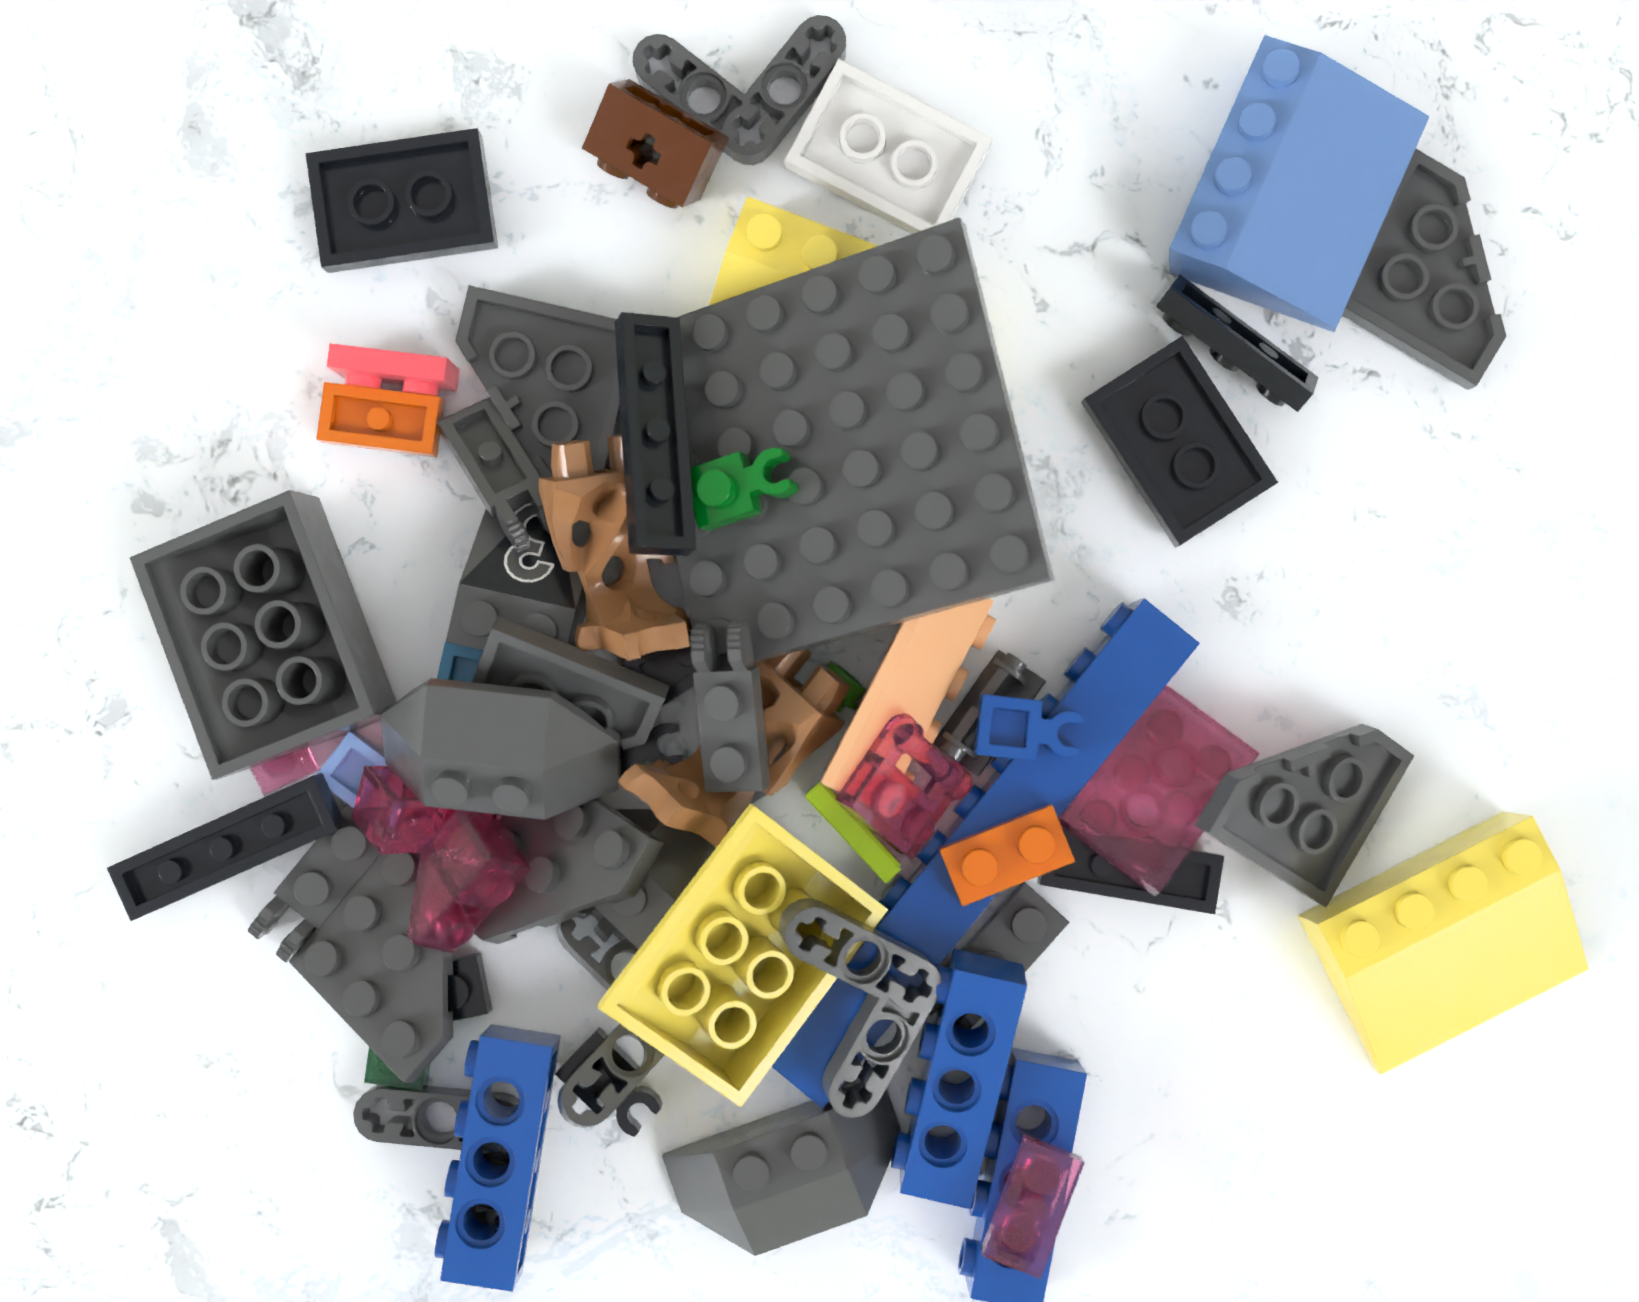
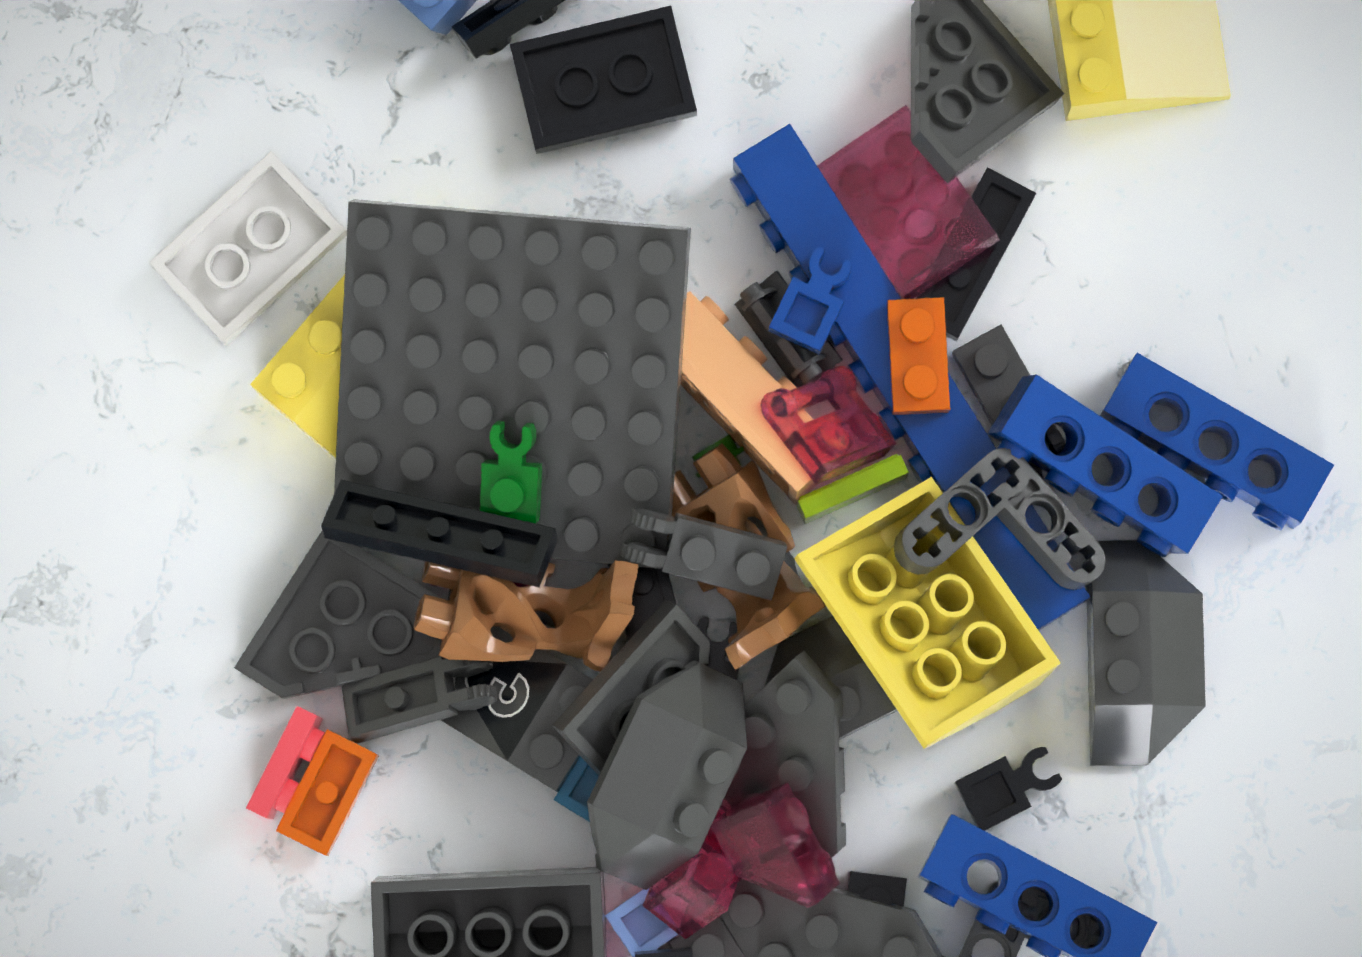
camera: 70 degrees left, 5 degrees down
(401, 200) = (131, 704): black plate -> none
(584, 1075) = (961, 745): dark grey beam -> none
(686, 144) = (185, 430): reddish brown brick -> none
(739, 108) = (153, 372): dark grey beam -> none
(1032, 1206) = (1233, 438): clear pink plate -> none

